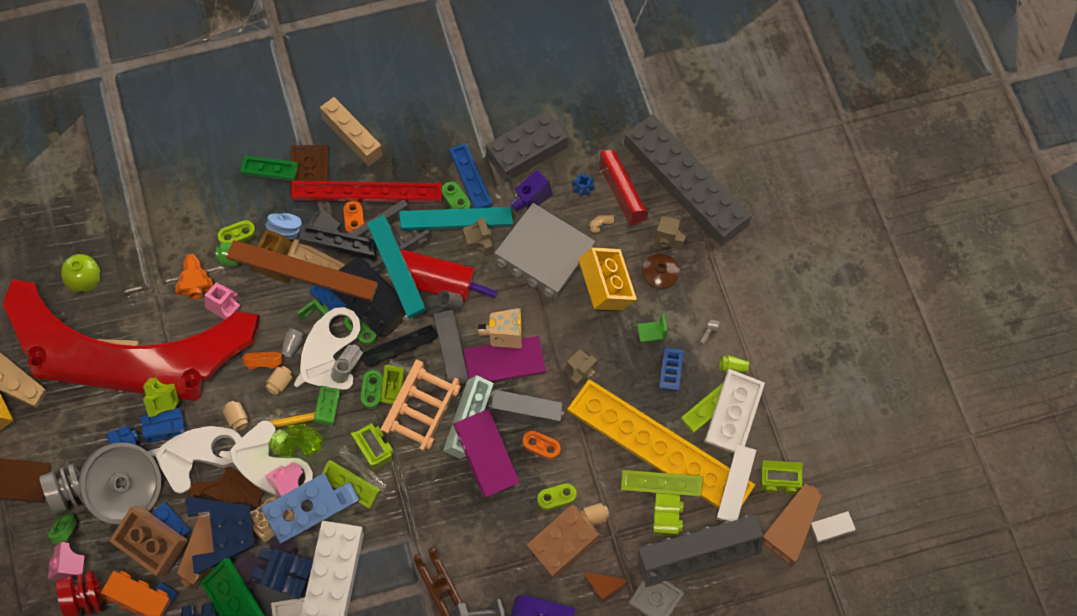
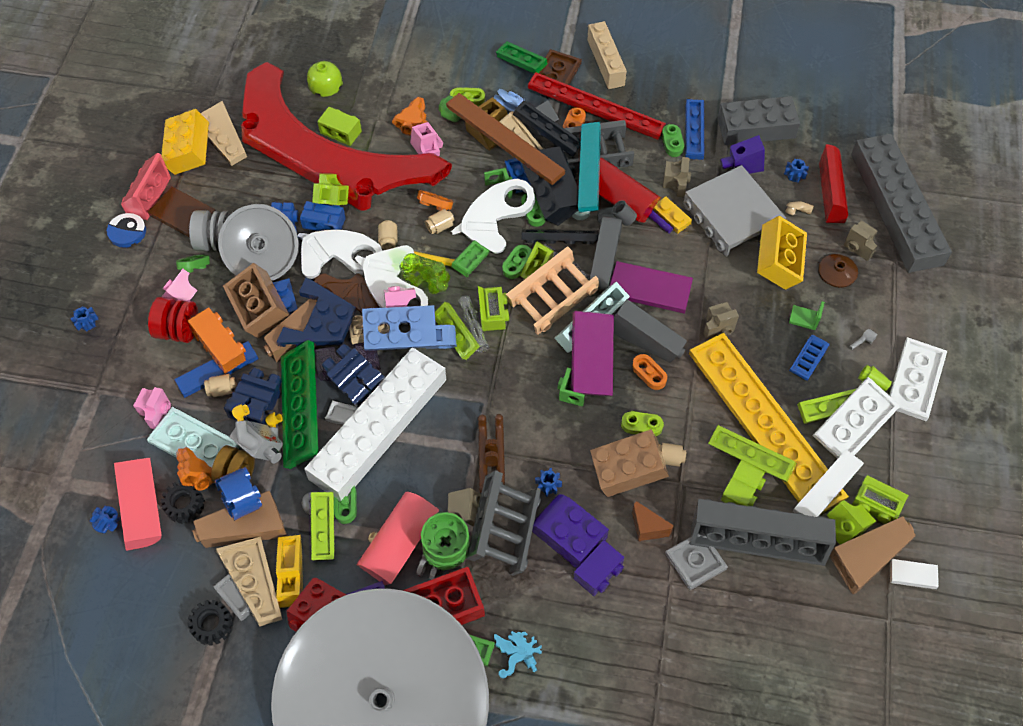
camera: 30 degrees right, 5 degrees down
(125, 319) = (339, 126): none -> lime brick
(291, 342) = (467, 196): light grey cone -> none
(346, 363) = (503, 228): light grey piece -> none
(454, 218) = (662, 153): teal tile -> none
(478, 502) = (564, 393): none -> bright green bracket
(491, 278) = (672, 214): none -> yellow plate
(500, 584) = (548, 487): none -> blue gear
(504, 329) = (663, 258): tan torso -> none
(765, 507) = (850, 521): none -> lime brick
(767, 347) = (917, 378): none -> white tile

